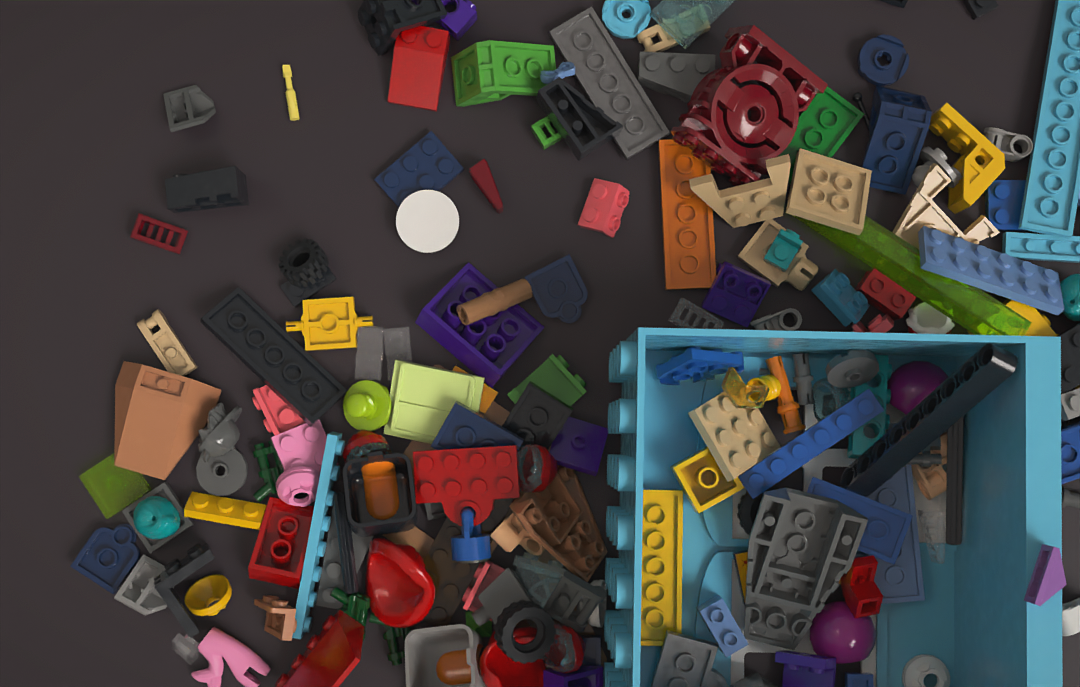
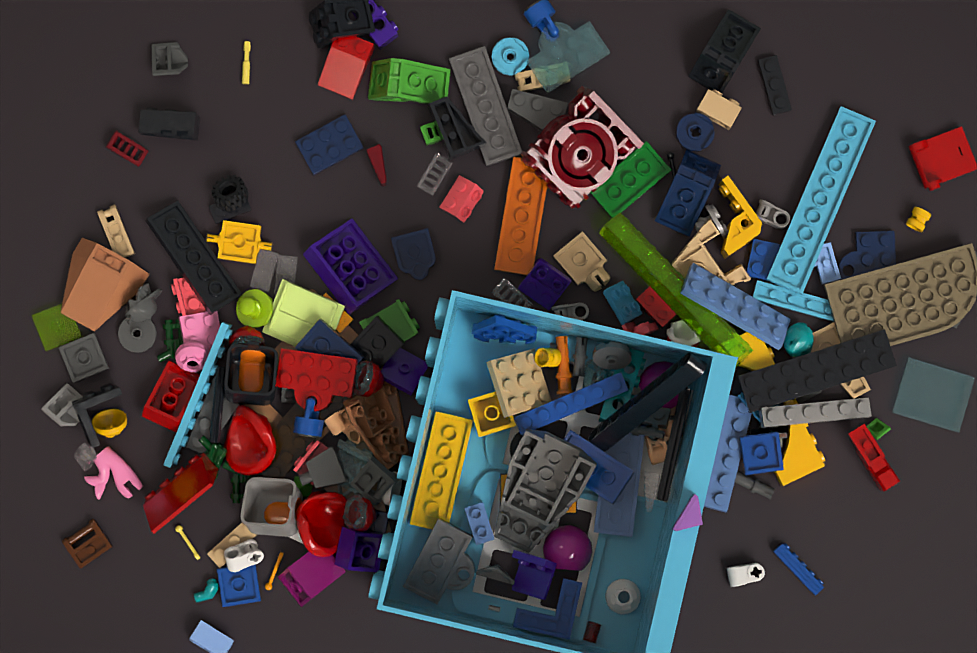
camera: 15 degrees right, 0 degrees up
(109, 556) = (42, 378): dark blue plate -> none
(156, 518) = (83, 357): teal hair -> none
(225, 510) = (134, 363): yellow plate -> none
(279, 617) = (158, 448): nougat bracket -> none
(427, 221) = (328, 181): white piece -> none
(494, 301) = (364, 251): medium nougat axle -> none
(539, 645) = (347, 500): black tyre -> none
(564, 70) = (454, 90): medium blue piece -> none
(569, 163) = (444, 160): none -> clear slope
(739, 392) = (528, 355): clear yellow bracket -> none
(750, 201) = (566, 217): tan wing -> none
(783, 249) = (586, 258): teal bracket -> none
(829, 192) = (628, 222): tan plate -> none
(860, 589) = (586, 515): red brick -> none
(908, 24) = (719, 109): none -> tan brick

